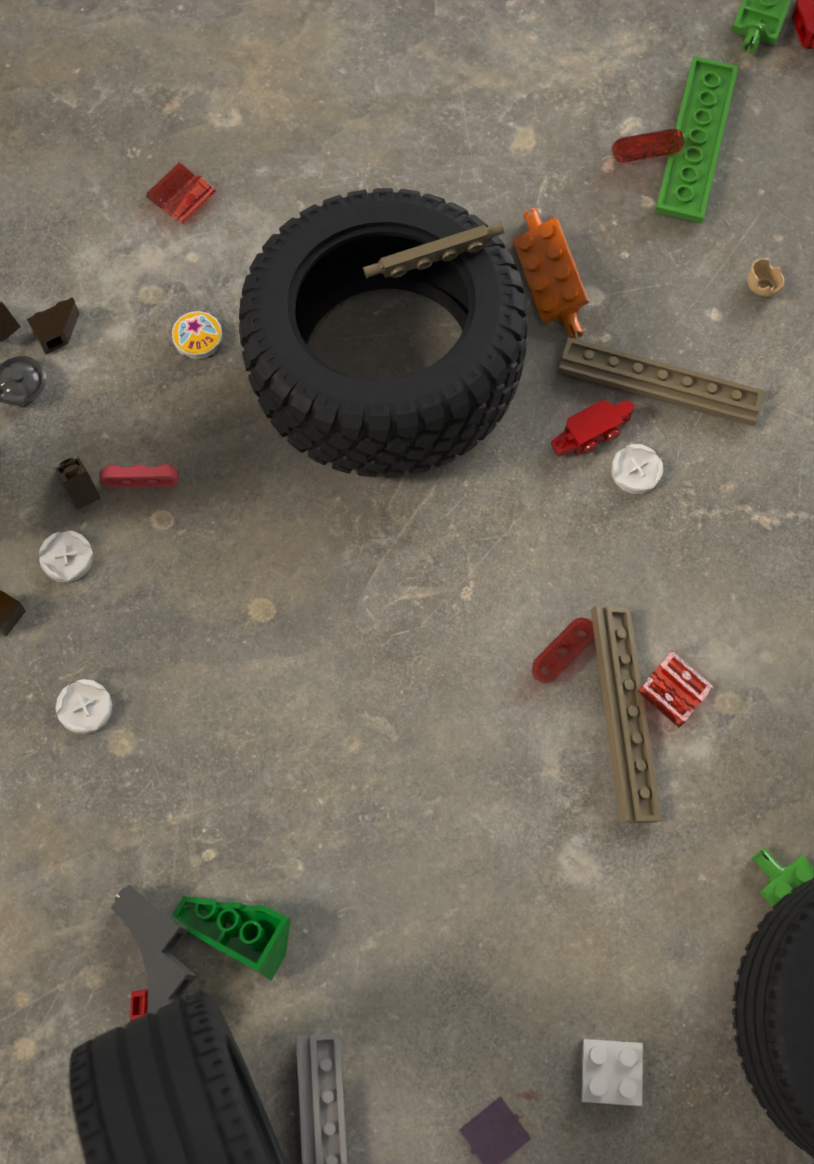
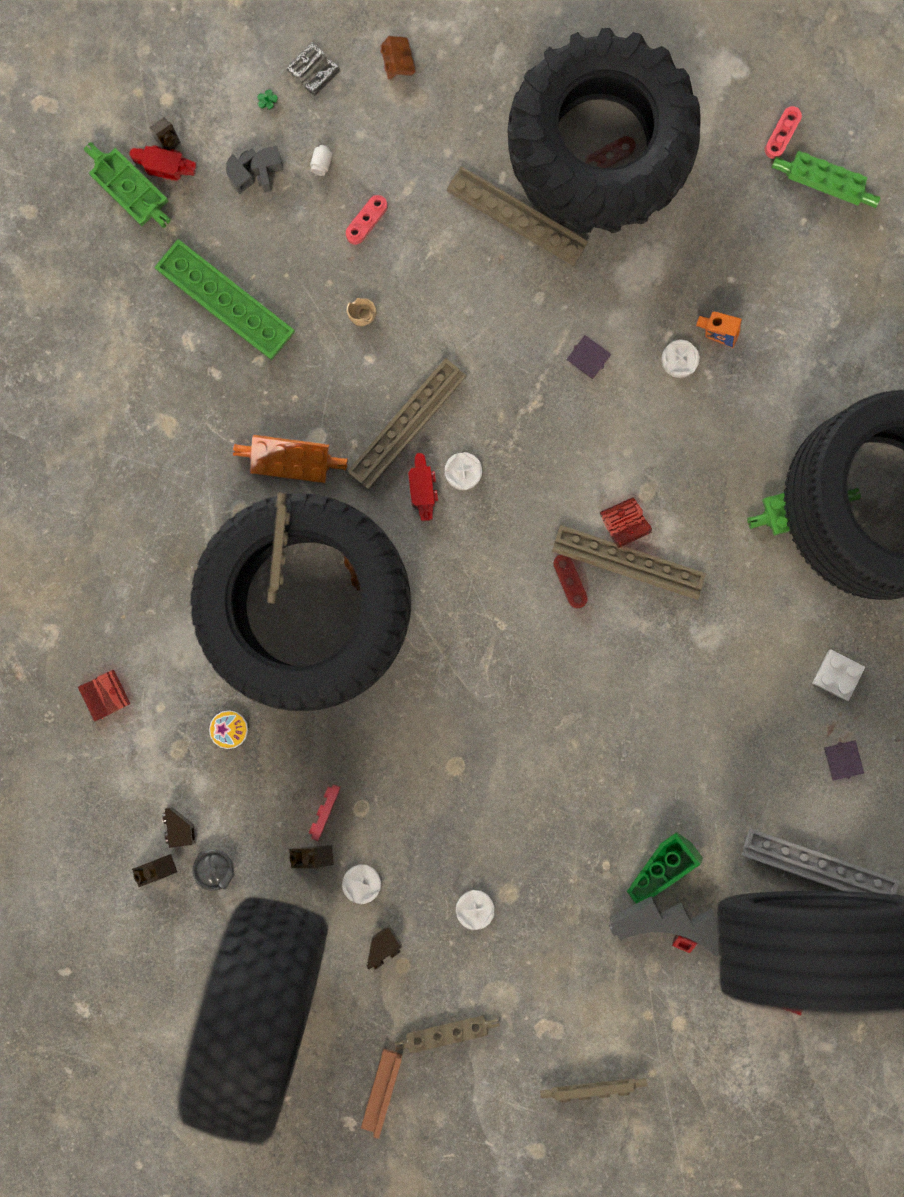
camera: 65 degrees left, 15 degrees up
(648, 145) = (212, 346): clear red plate -> none

